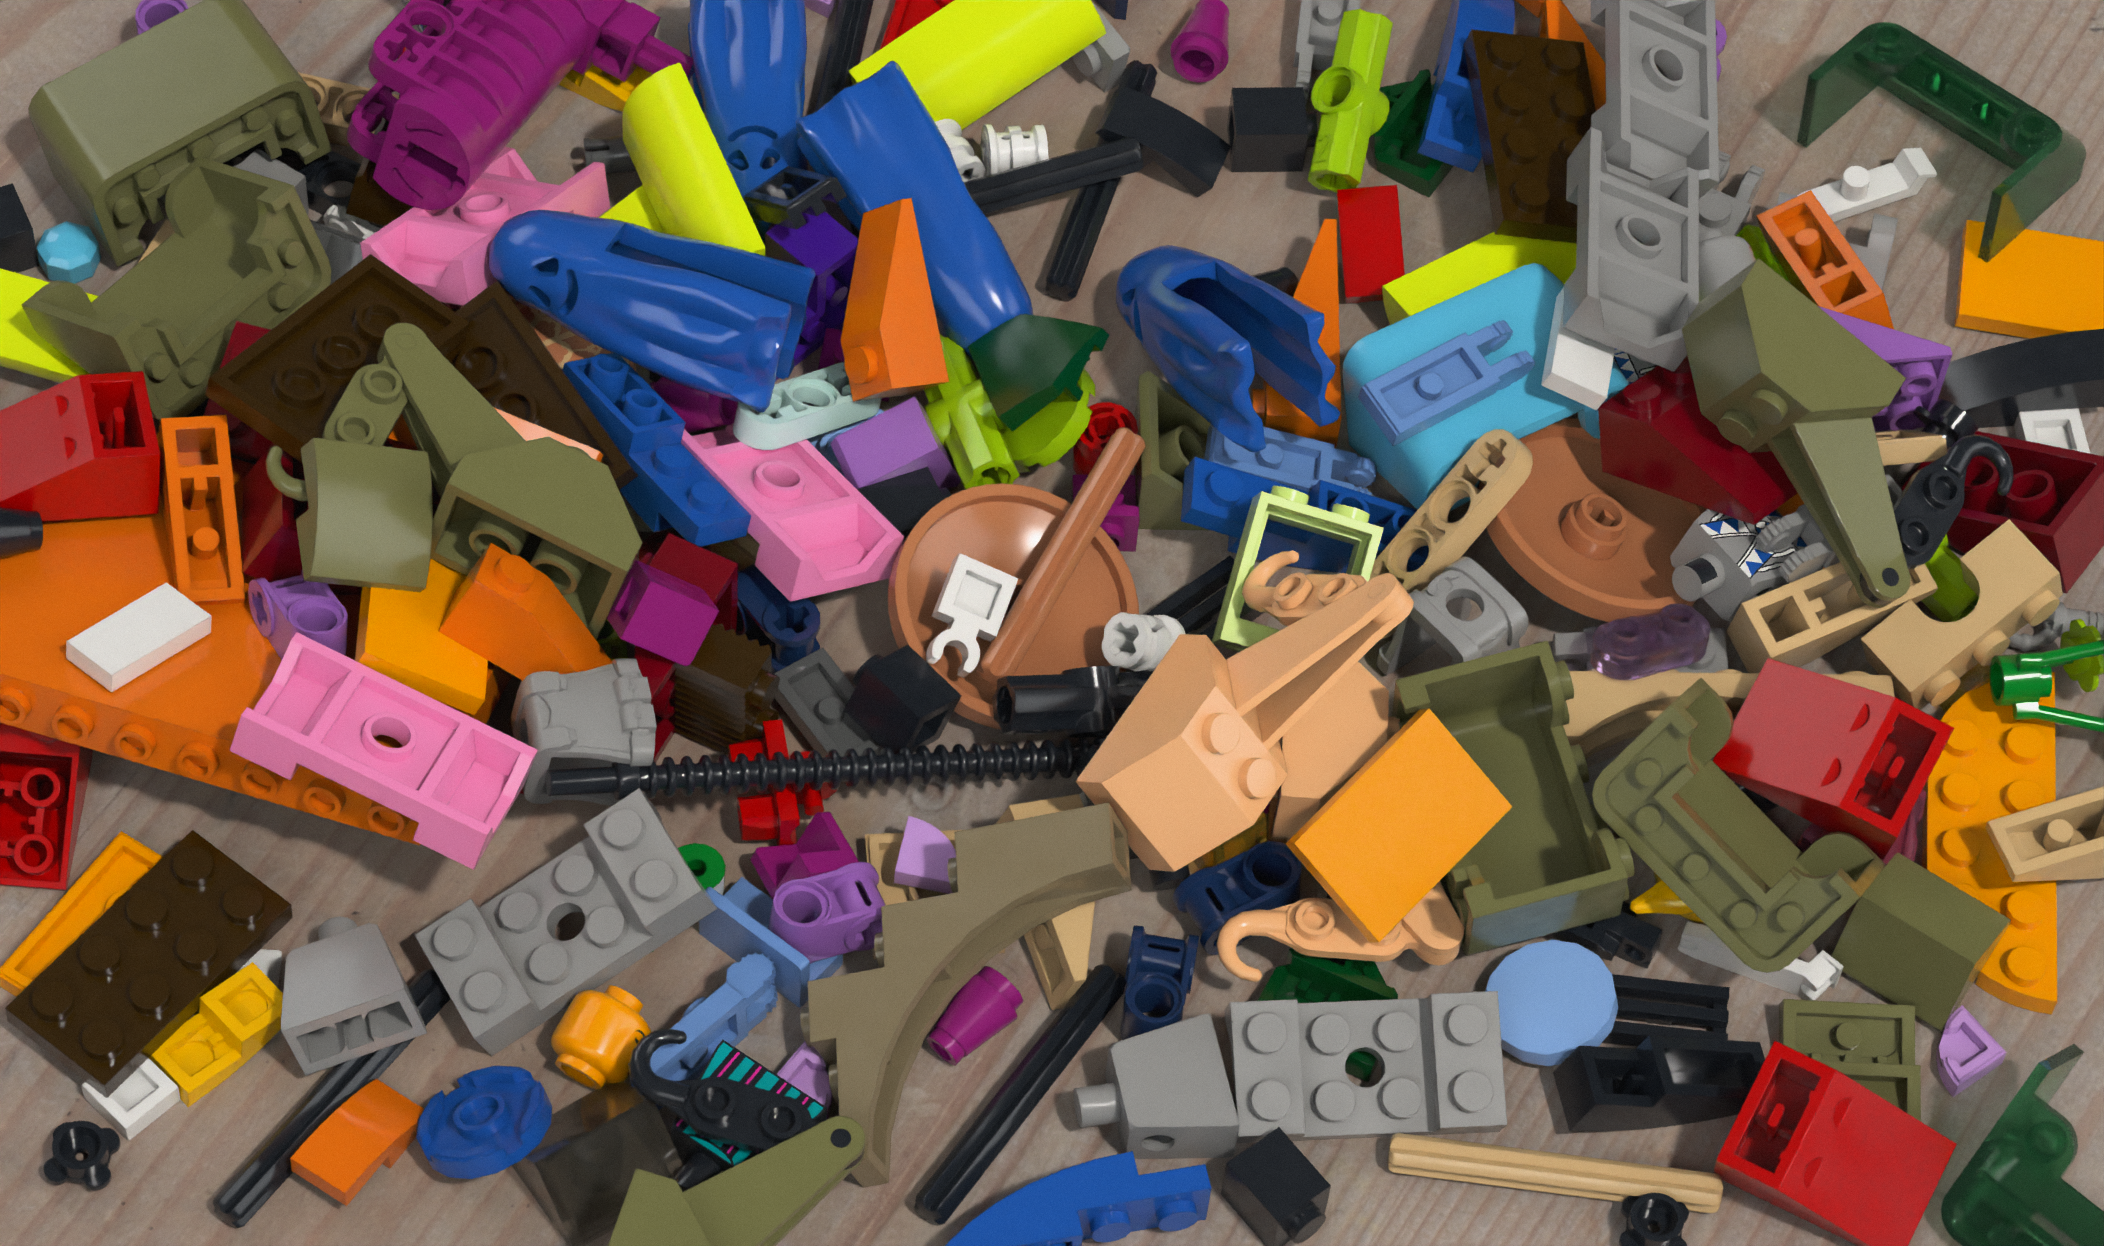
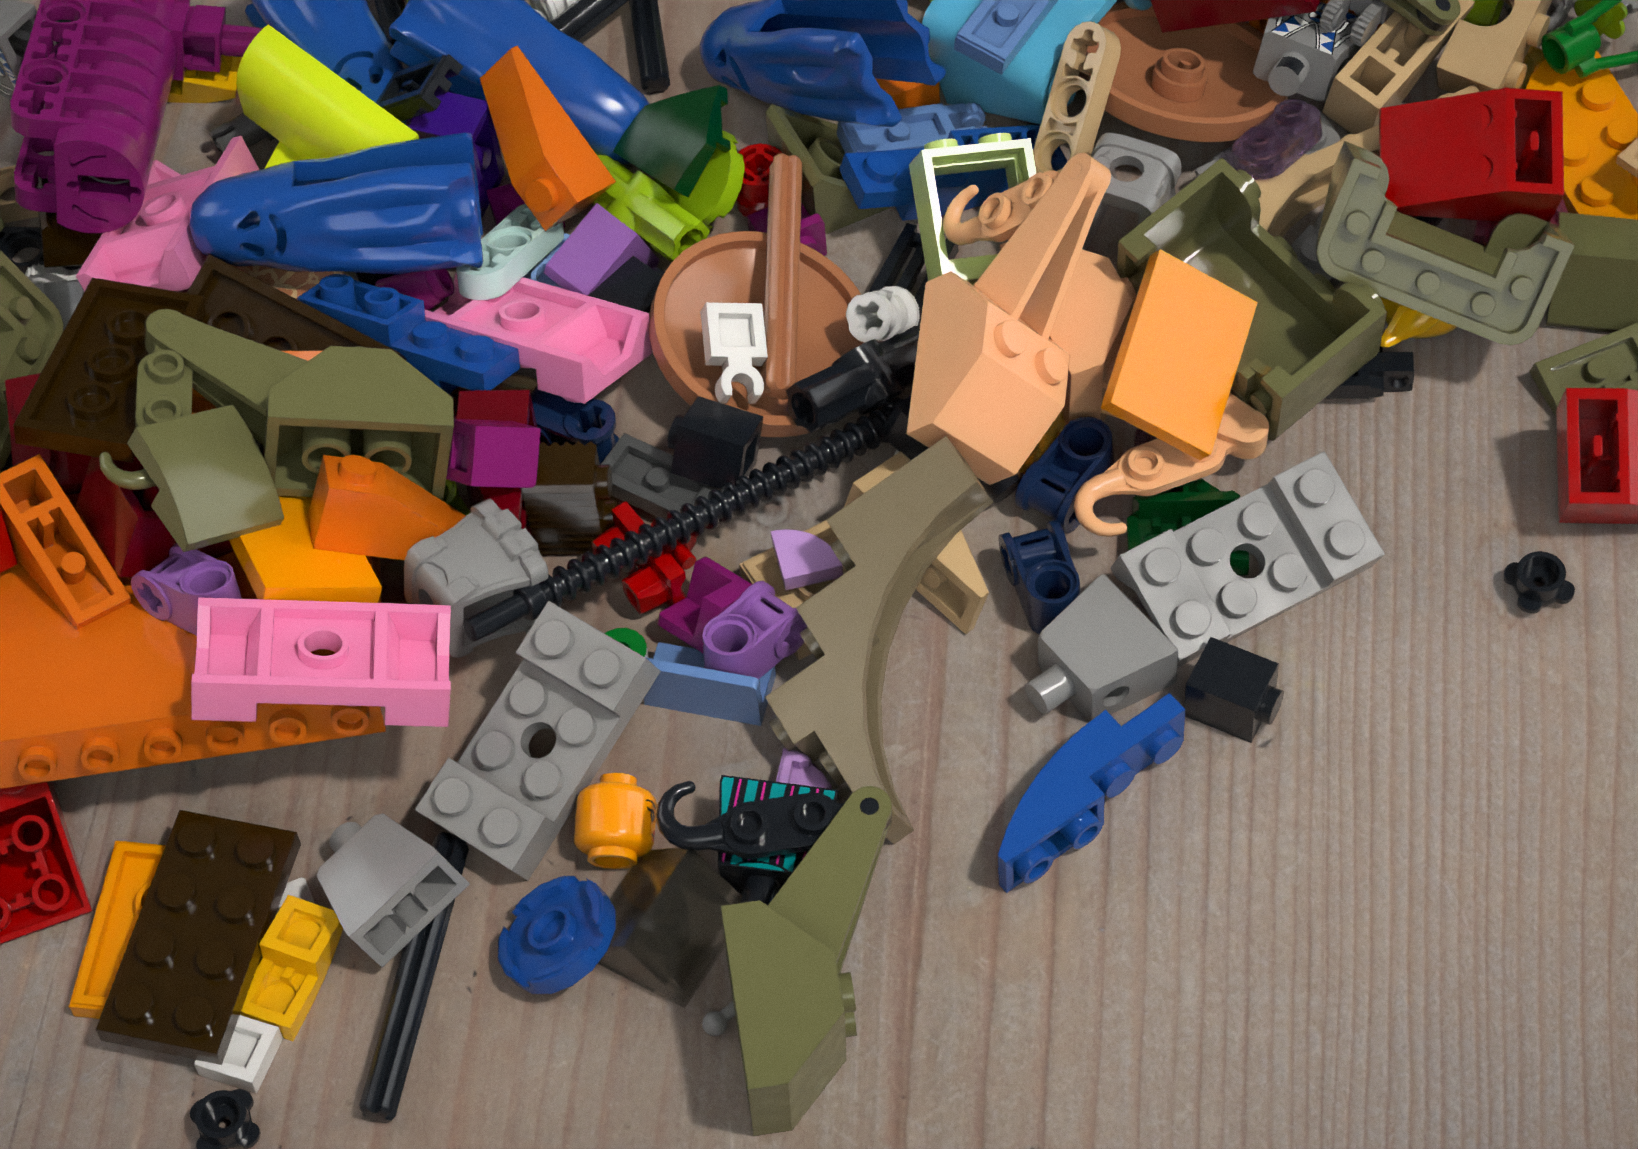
camera: 15 degrees left, 0 degrees up
(138, 637) = (58, 666): white tile -> none
(356, 1140) = (456, 1001): orange slope -> none
(722, 1016) = (704, 761): medium blue hinge -> none
(975, 1015) = (911, 664): magenta cone -> none
(1019, 1095) = (980, 714): black axle -> none
(1550, 1171) = (1432, 577): tan axle -> none
(1553, 1001) = (1366, 441): light blue tile -> none
(1657, 1083) = (1477, 470): black slope -> none
(1665, 1003) = (1440, 411): black tile -> none
(1798, 978) = (1473, 349): white piece -> none

